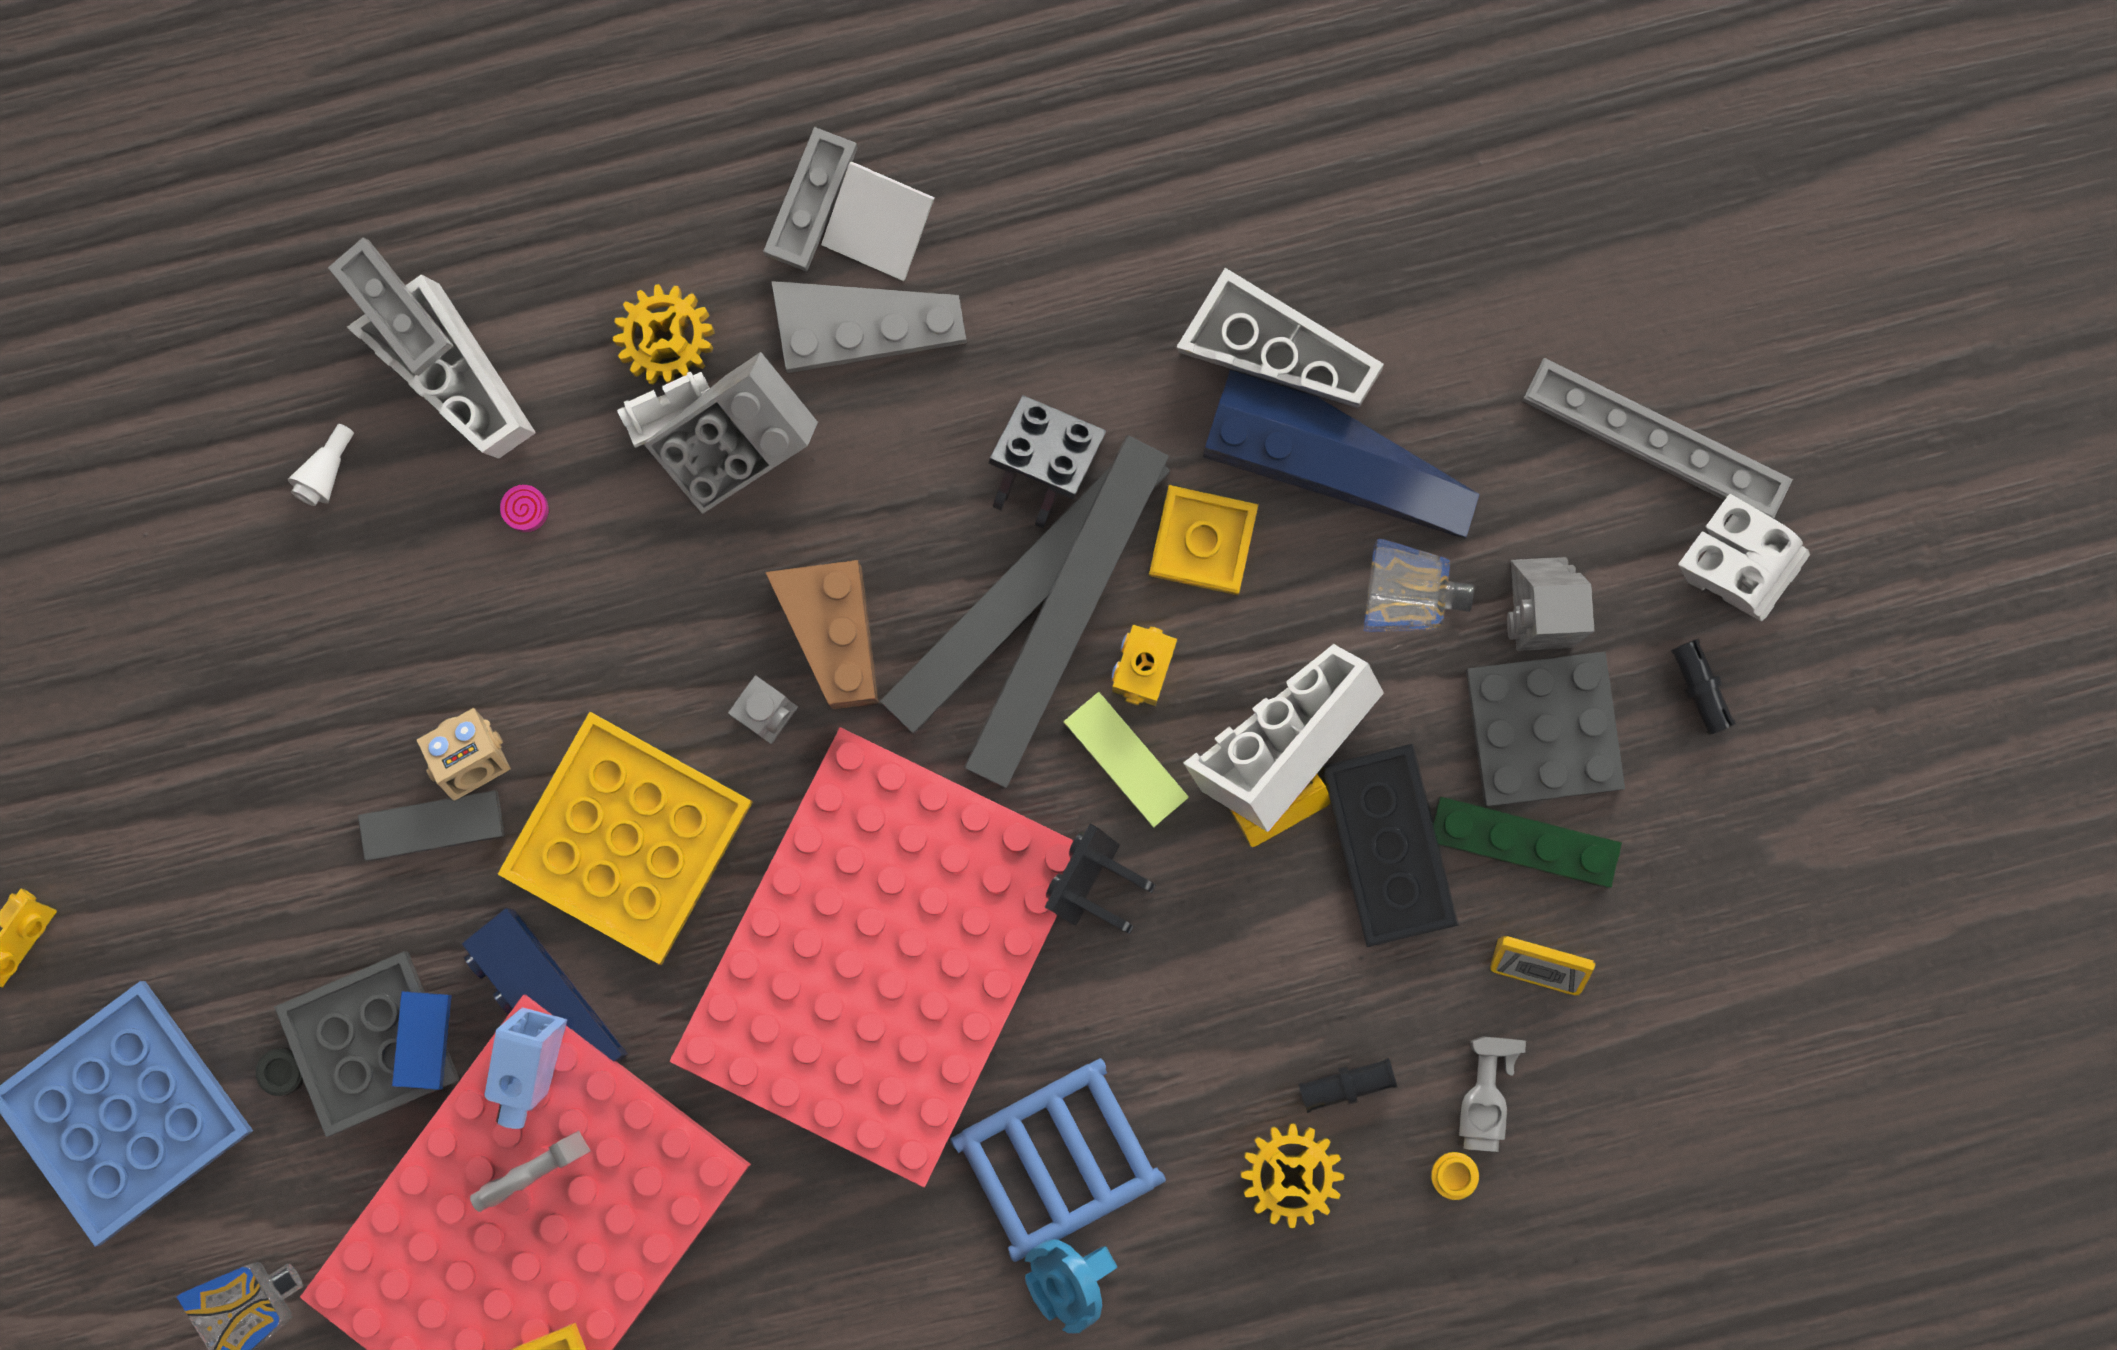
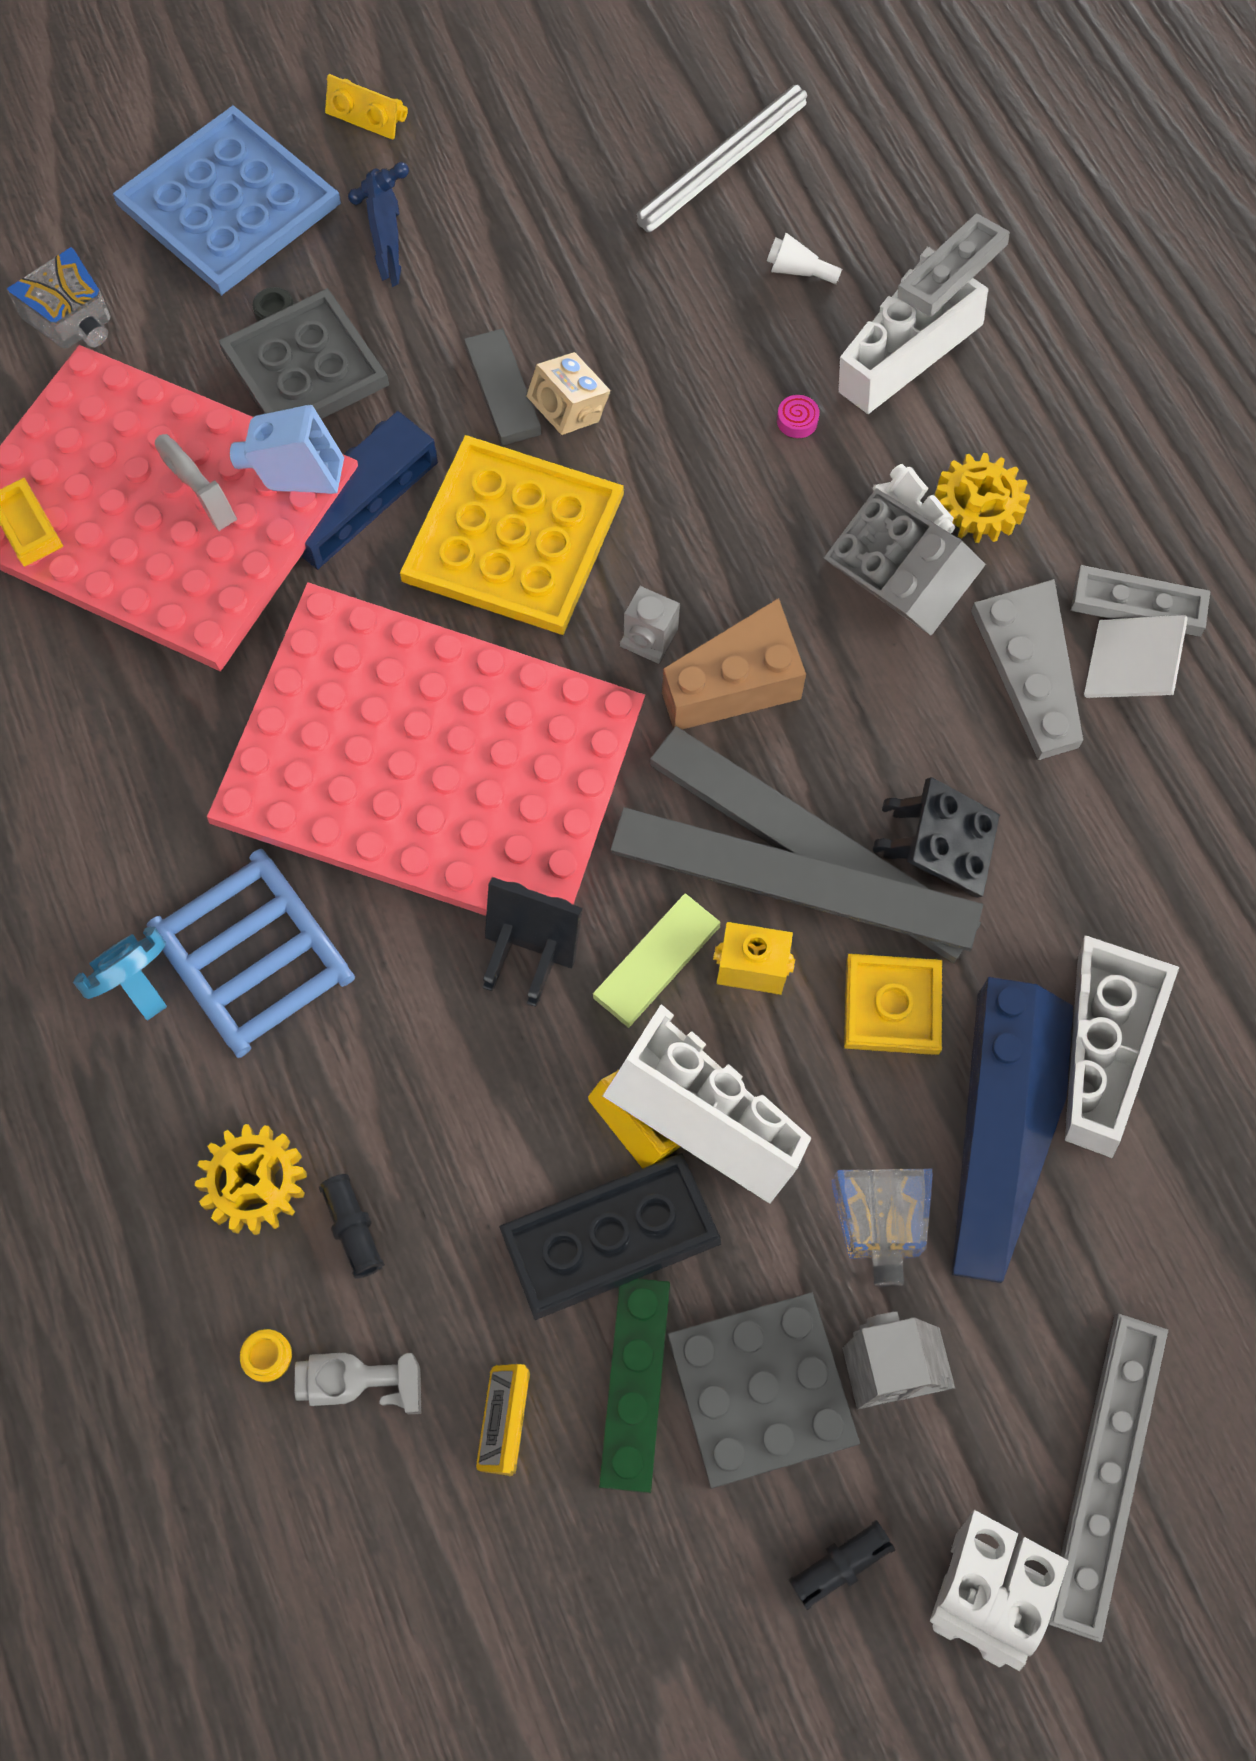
camera: 75 degrees right, 15 degrees down
(143, 932) = (382, 215): none -> dark blue piece
(157, 529) = (721, 158): none -> axle
(421, 1040) = (326, 391): blue tile -> none

